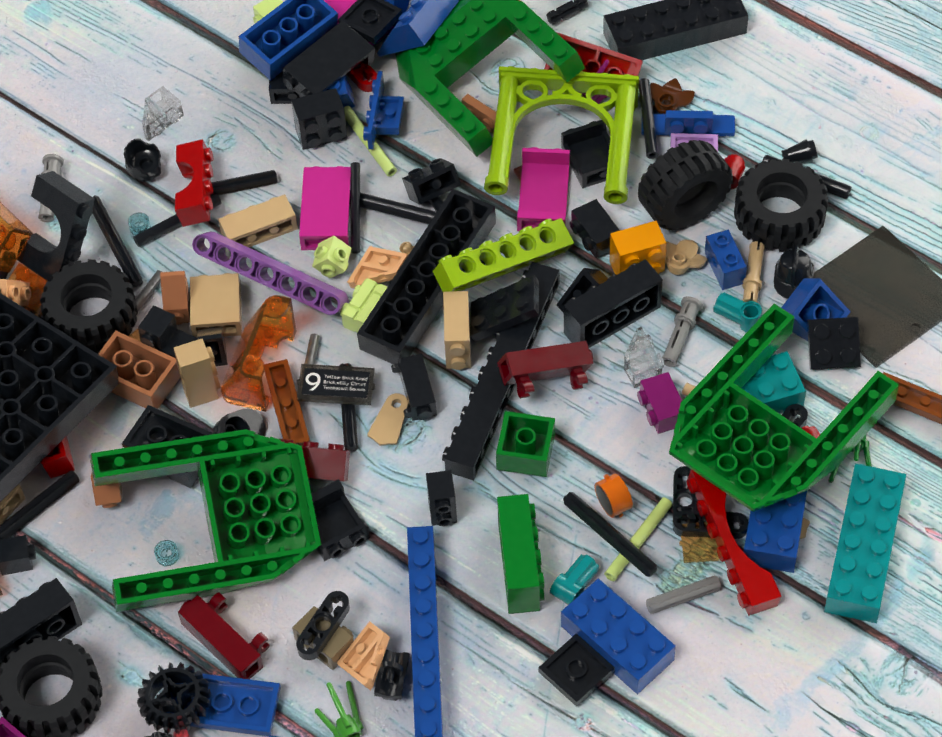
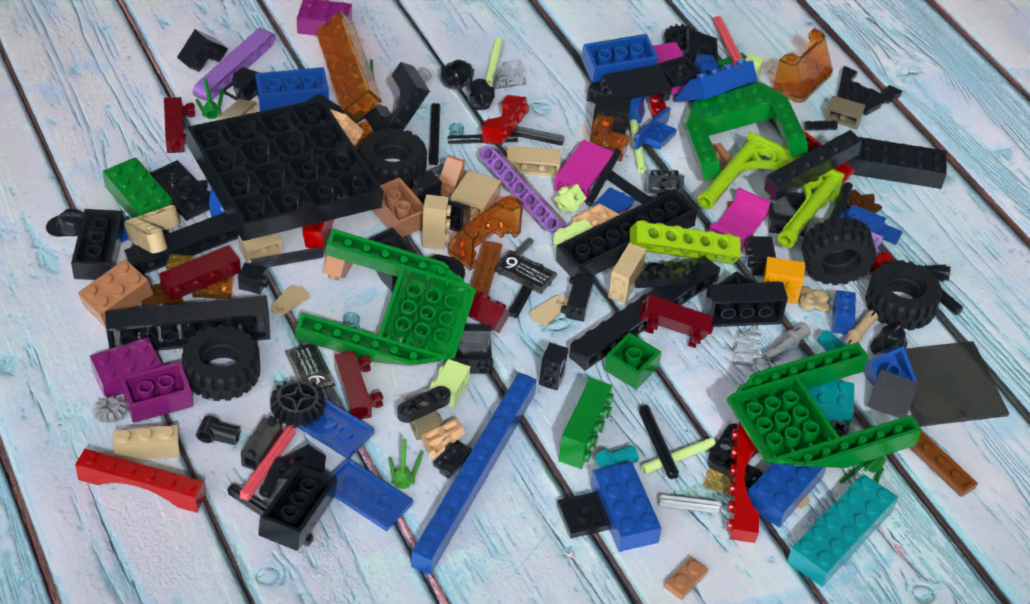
camera: 20 degrees right, 10 degrees down
(74, 560) = (289, 299): none -> tan piece
(97, 145) = (456, 74): none -> black hair
(127, 101) = (493, 60): none -> yellowish green piece
(152, 638) = (309, 364): none -> piece
(331, 151) = (604, 136): none -> clear orange brick
(333, 574) = (454, 377): none -> yellowish green brick
(384, 233) = (615, 200): none -> blue piece
(599, 83) = (812, 165): none -> black brick
(613, 495) = (675, 418): orange piece -> none
(661, 401) = (742, 371): magenta brick -> none
(729, 689) = (686, 578): none -> nougat plate

